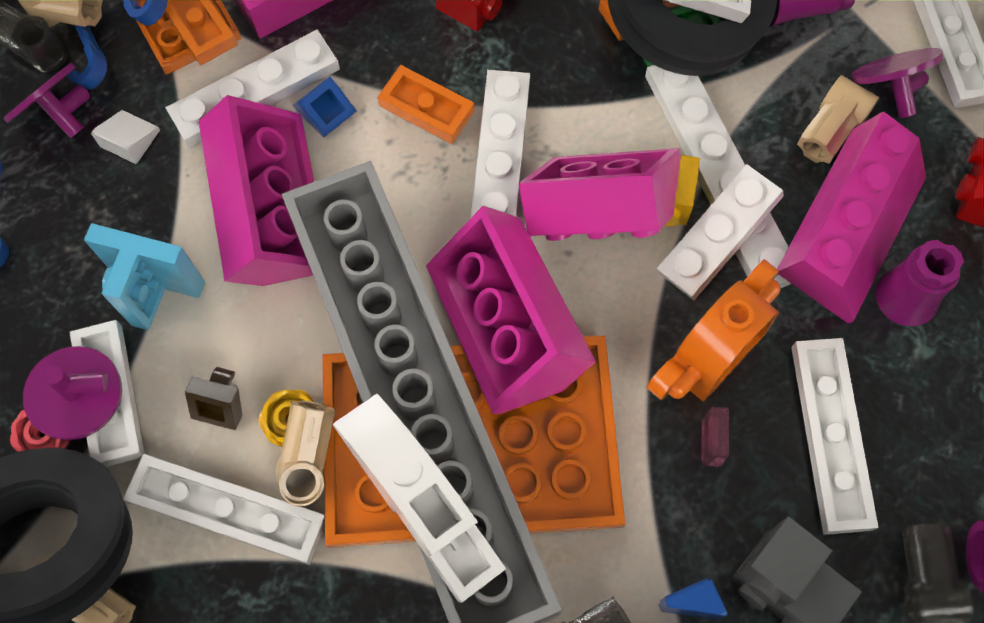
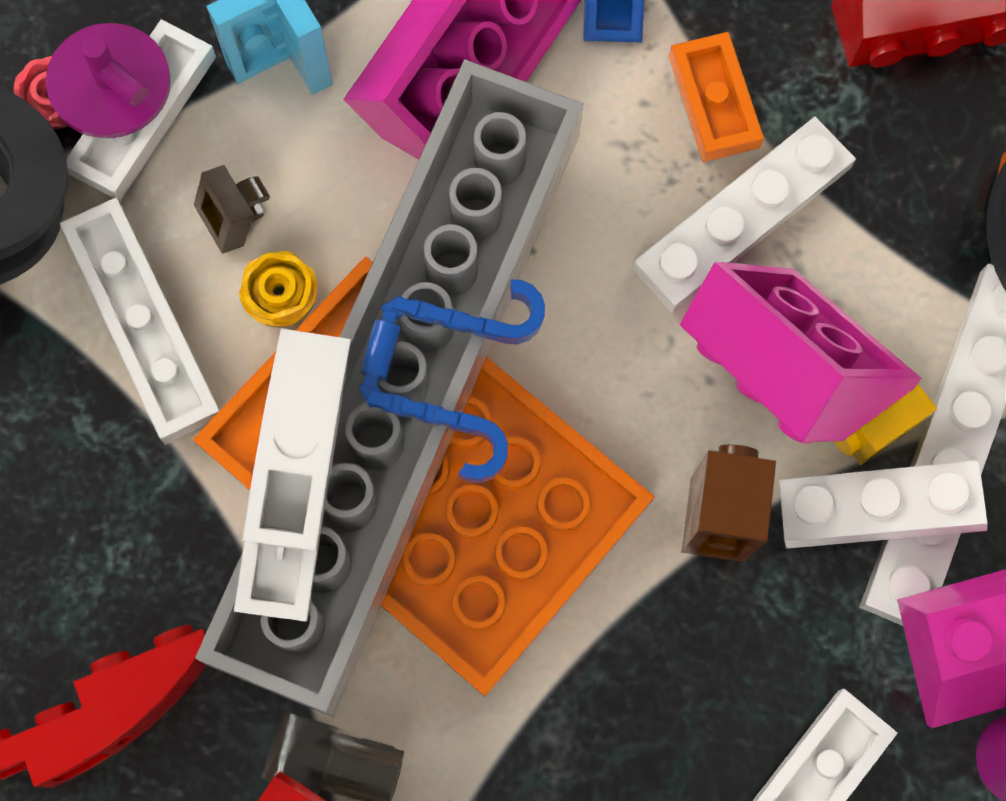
camera: 40 degrees right, 5 degrees up
(304, 448) = (254, 332): tan piece -> none
(395, 386) = (382, 347): none -> blue piece
(508, 312) = (584, 380): dark pink slope -> none
(649, 301) = (729, 504): none -> reddish brown brick
(715, 437) = (662, 700): clear pink tile -> none
(721, 337) = (766, 609): orange piece -> none

